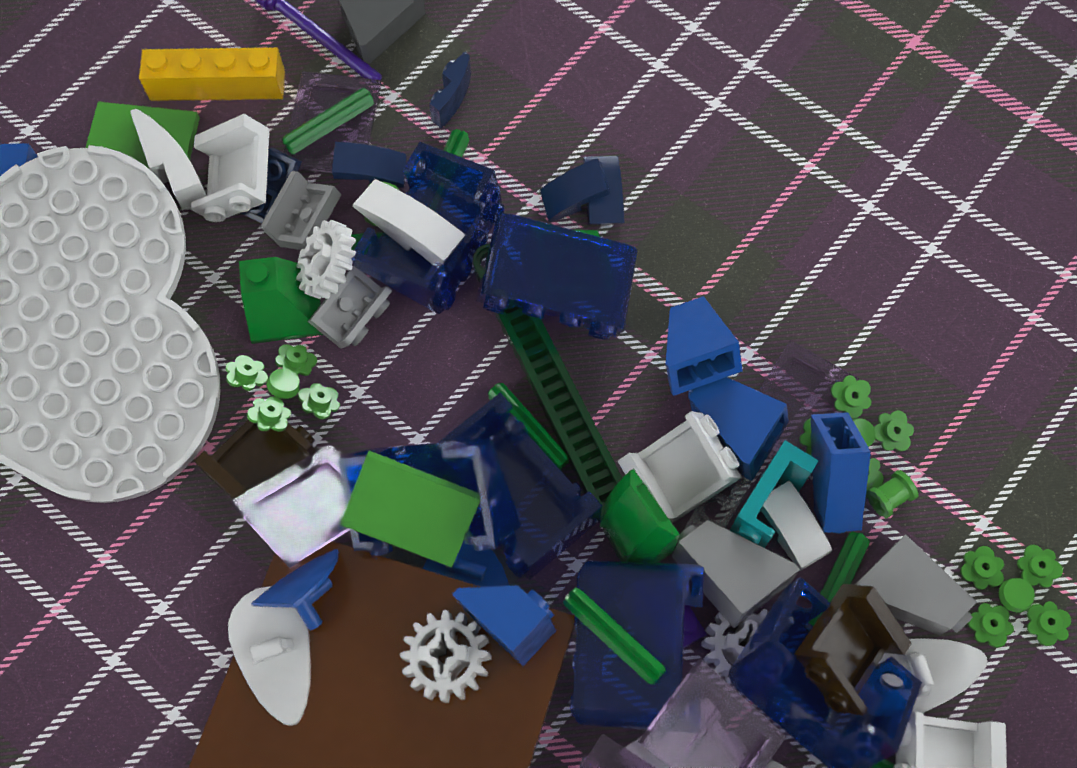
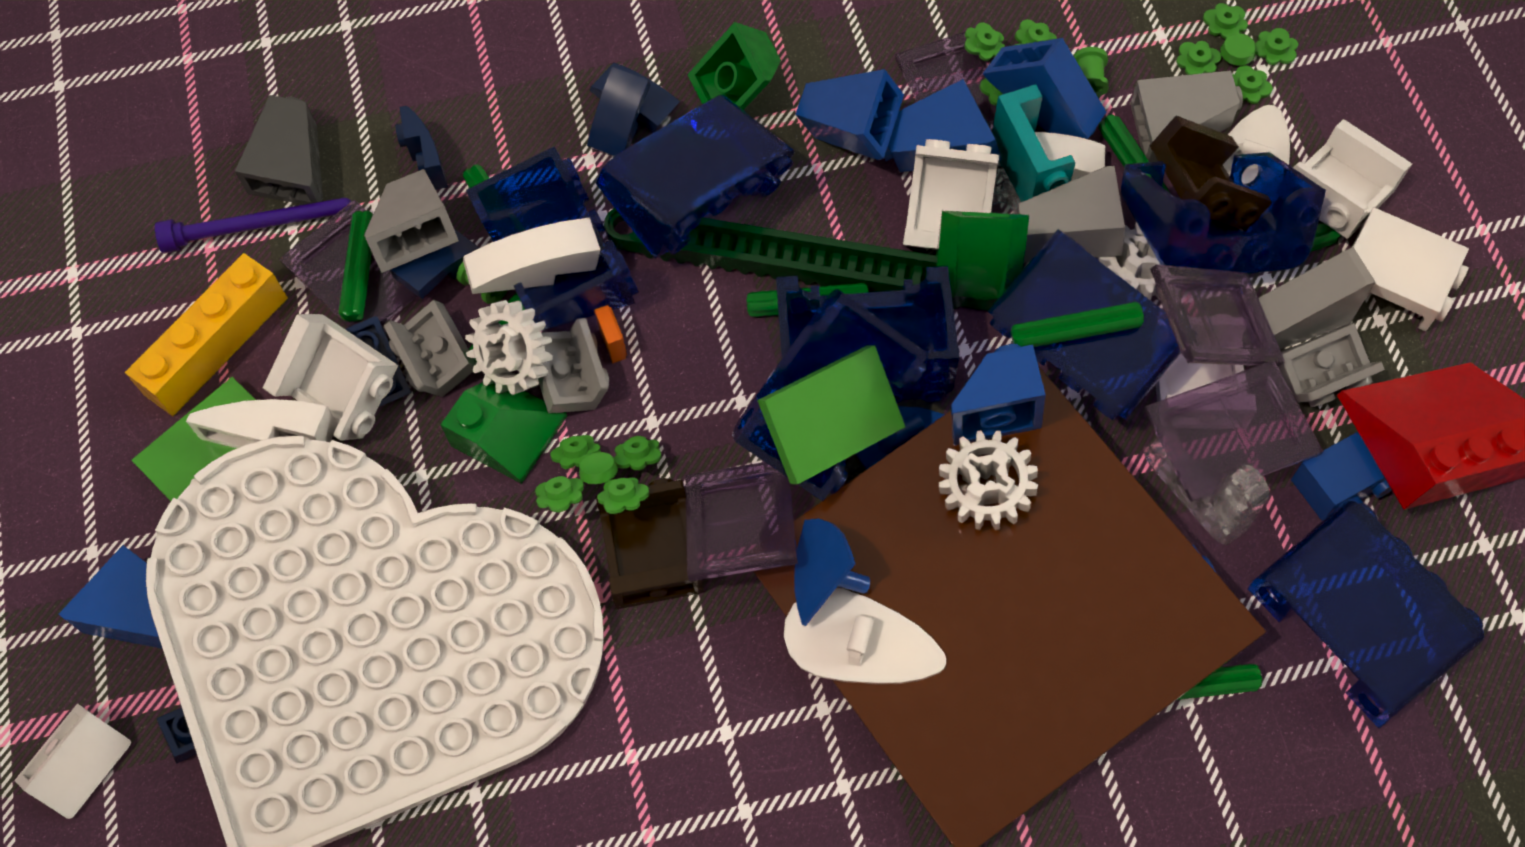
camera: 50 degrees left, 5 degrees down
(378, 125) = (408, 222): none -> light grey slope
(398, 316) = (611, 333): none -> orange tile
(679, 241) = (736, 66): none -> green slope

